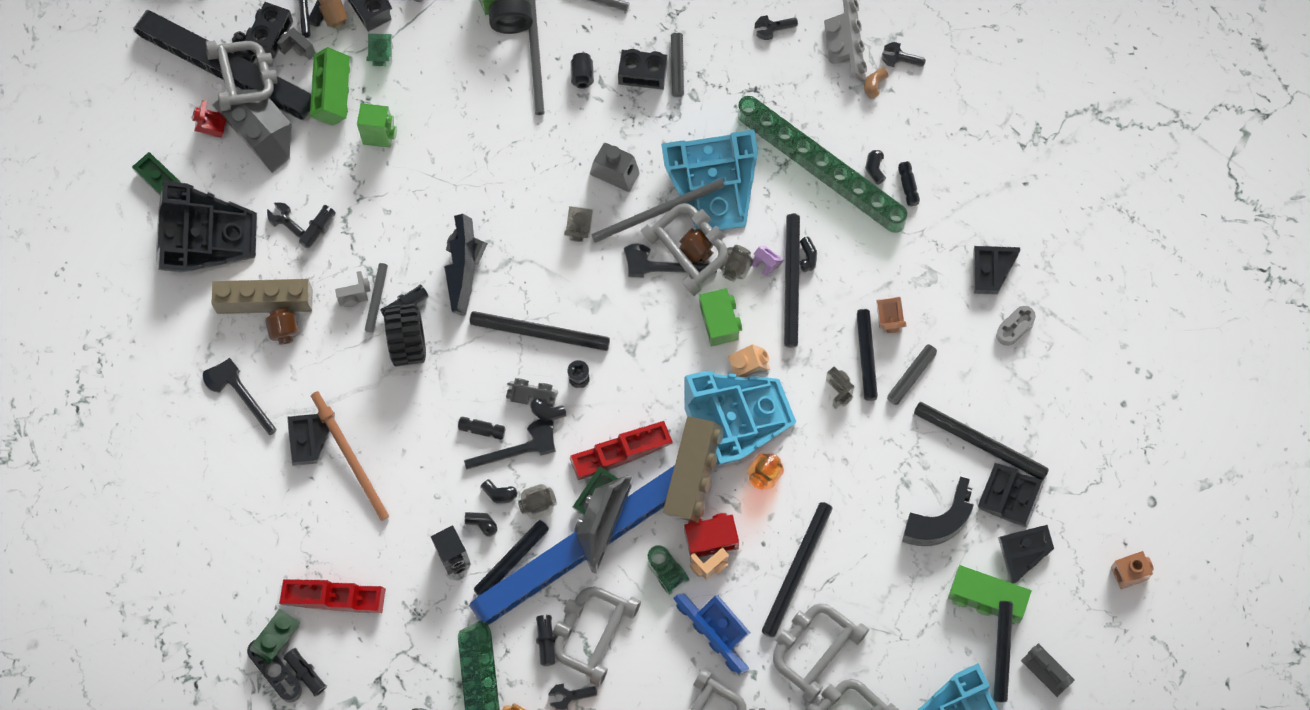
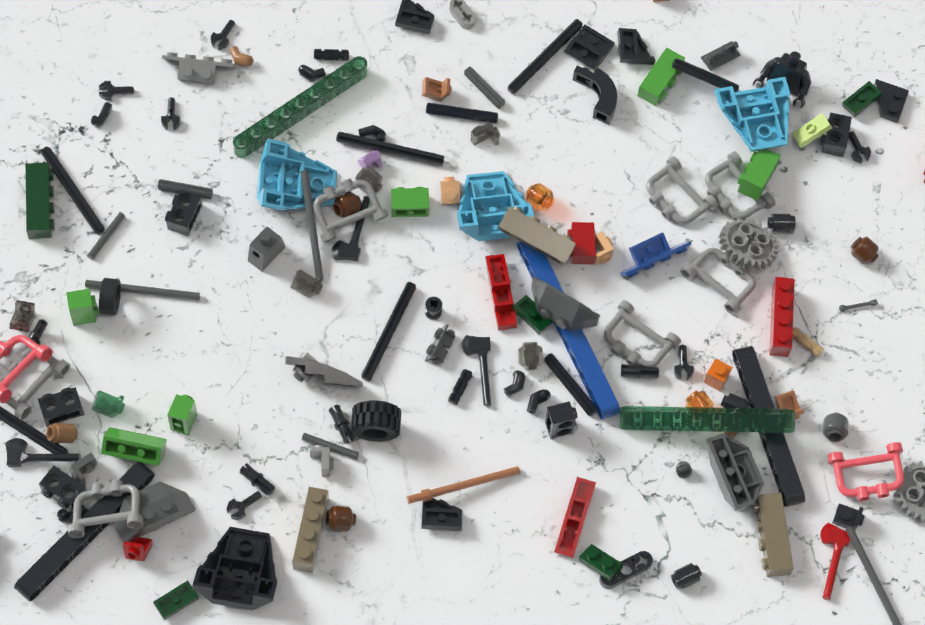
camera: 85 degrees left, 5 degrees down
(227, 372) = (369, 570): black piece -> none
(305, 672) = (632, 546): black pin -> none
(545, 412) = (459, 337): black arm -> none
(582, 70) = (172, 256): black brick -> none
(668, 573) = (604, 277): clear green piece -> none
(797, 569) = (617, 194): black axle -> none

